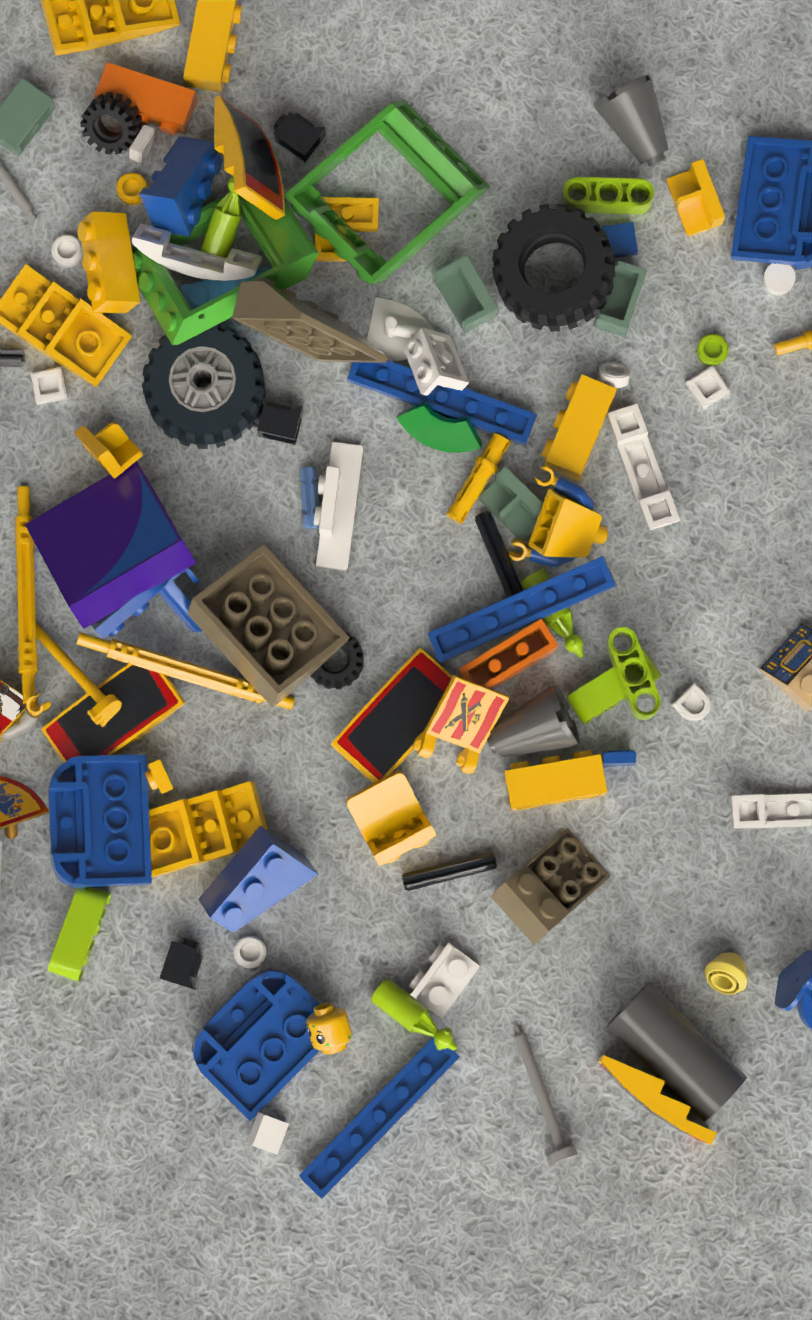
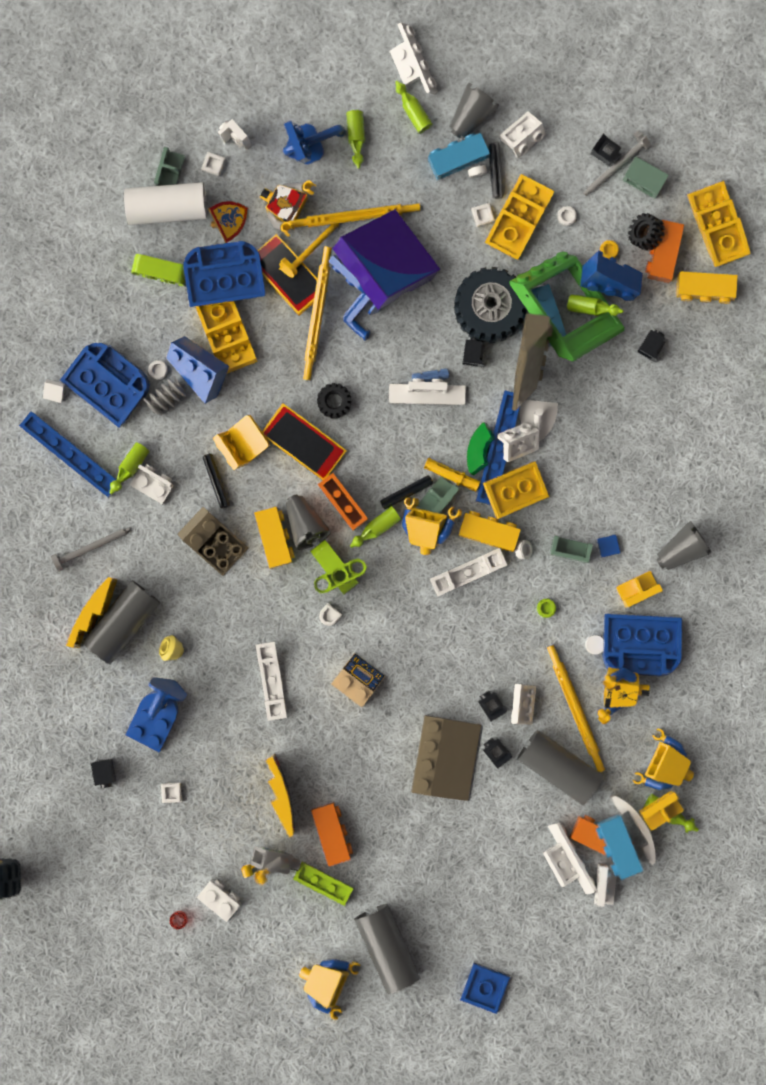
camera: 85 degrees right, 5 degrees up
(108, 262) = (560, 240): yellow brick -> none
(110, 448) = (445, 253): yellow panel -> none
(142, 144) = (636, 252): white tile -> none
(158, 777) = (252, 303): yellow plate -> none
(182, 963) = (146, 331): black window -> none
(191, 262) = (564, 289): white slope -> none
(248, 158) = (631, 314): slope -> none
(267, 625) = (348, 357): dark tan slope -> none
(298, 940) = (166, 397): none -> light grey piece
(329, 1028) = (114, 418): yellow head -> none
(359, 215) = (604, 373): yellow plate -> none
(426, 153) = (648, 426): bright green window -> none
(463, 718) = (304, 478): yellow flag -> none
(465, 294) = (564, 456): sand green panel -> none
(515, 376) = (515, 489): none -> yellow plate
(522, 609) = (373, 507): blue plate -> none
(545, 228) = (599, 486): black tyre -> none
(619, 758) = (291, 572): blue tile -> none
(622, 189) = (637, 526): lime beam -> none
(707, 387) = (523, 607): white tile -> none

